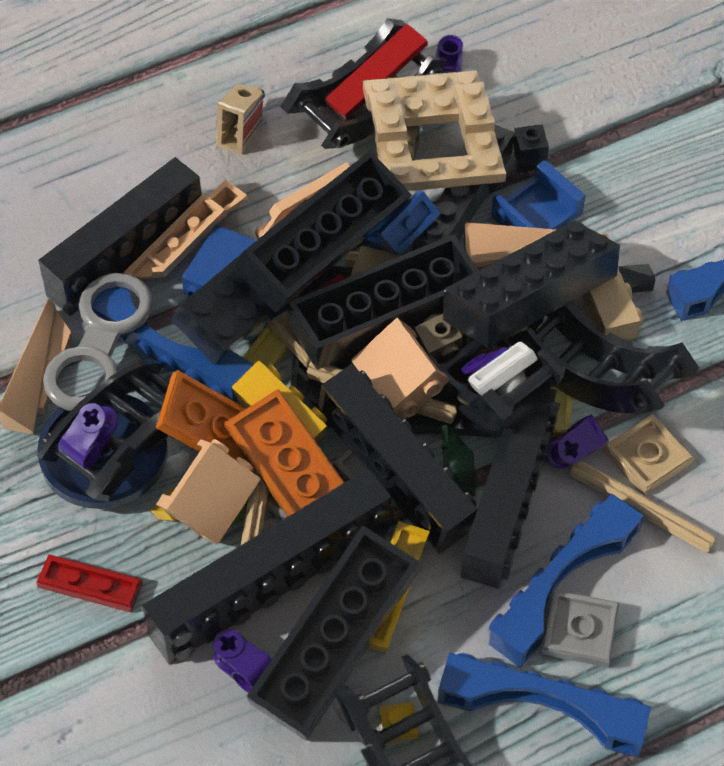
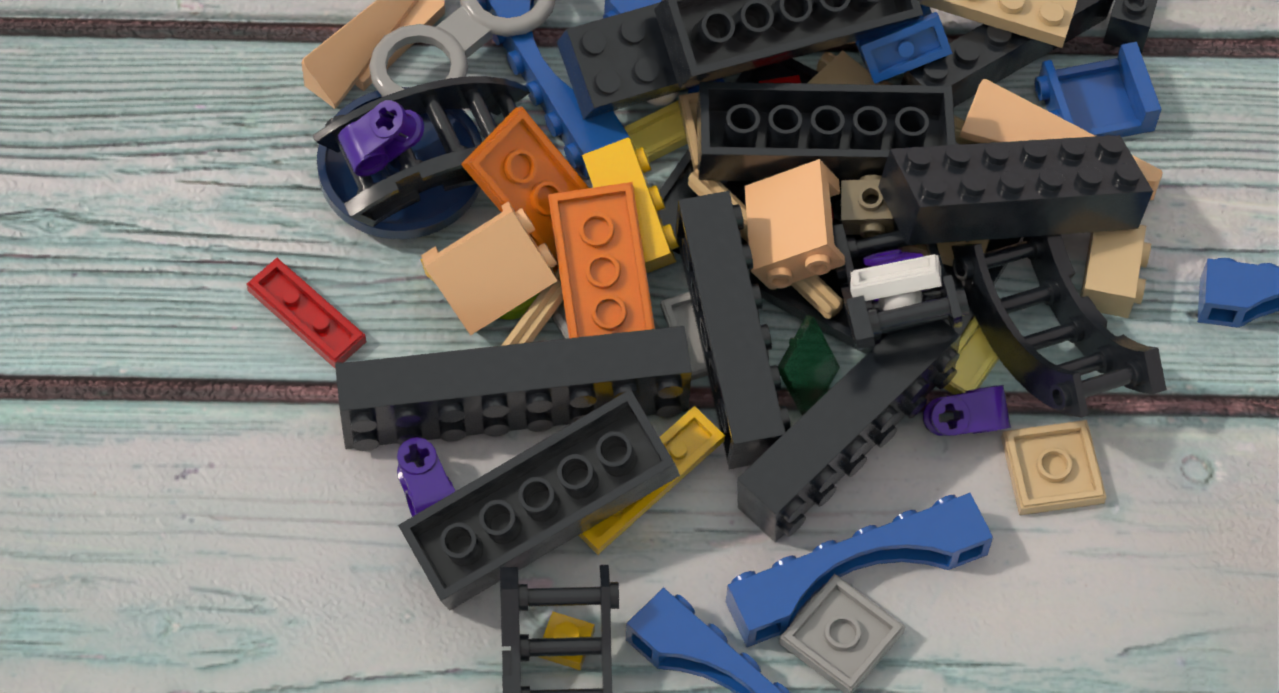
camera: 25 degrees right, 5 degrees up
(639, 277) = (1172, 243): black slope -> none
(651, 510) = (1007, 527): tan axle -> none

